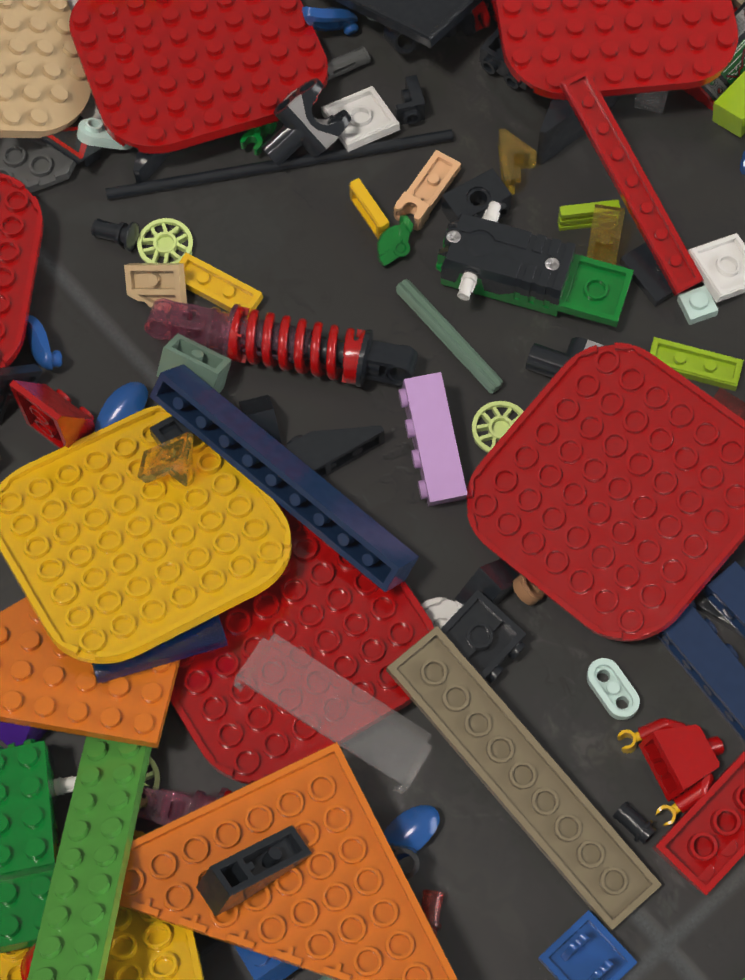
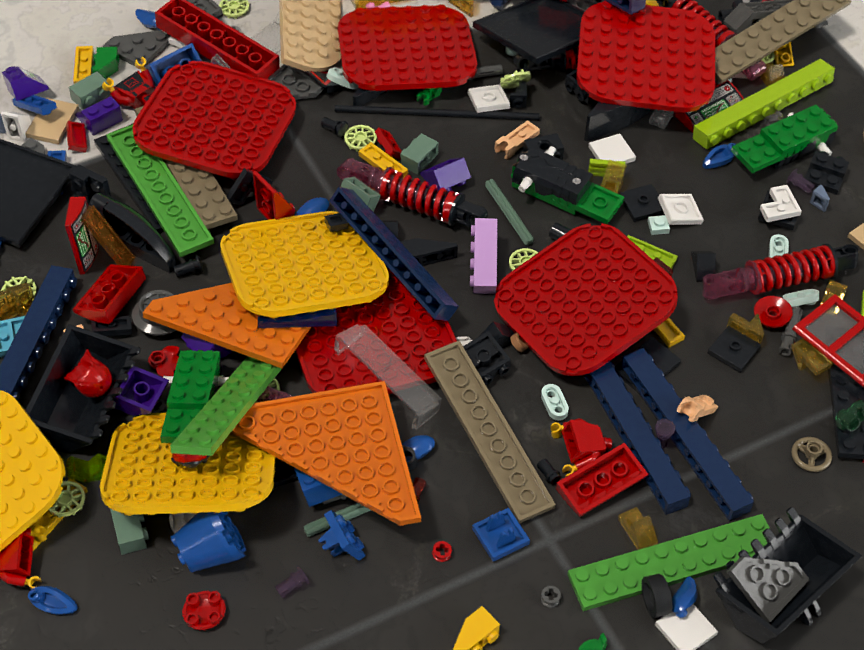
camera: 10 degrees right, 15 degrees down
(40, 346) = (275, 170): blue arm -> none
(155, 281) = (347, 149): tan wing -> none
(171, 458) = (334, 230): clear yellow slope -> none
(217, 247) = (388, 142): none -> red plate
(251, 869) = (312, 427): black slope -> none
(272, 256) = (419, 153): none -> sand green brick
(302, 127) = (453, 92): black connector -> none
(328, 287) = (447, 174): none -> slope
(331, 19) = (485, 47): blue arm -> none
(368, 208) = (480, 142): yellow tile -> none
(394, 241) = (491, 159): green piece -> none
(397, 74) = (512, 80): none -> yellowish green wheel
(513, 156) = (571, 132): clear yellow slope -> none
(583, 177) = (613, 149): none -> white tile
(631, 182) = (633, 151): red tile -> none

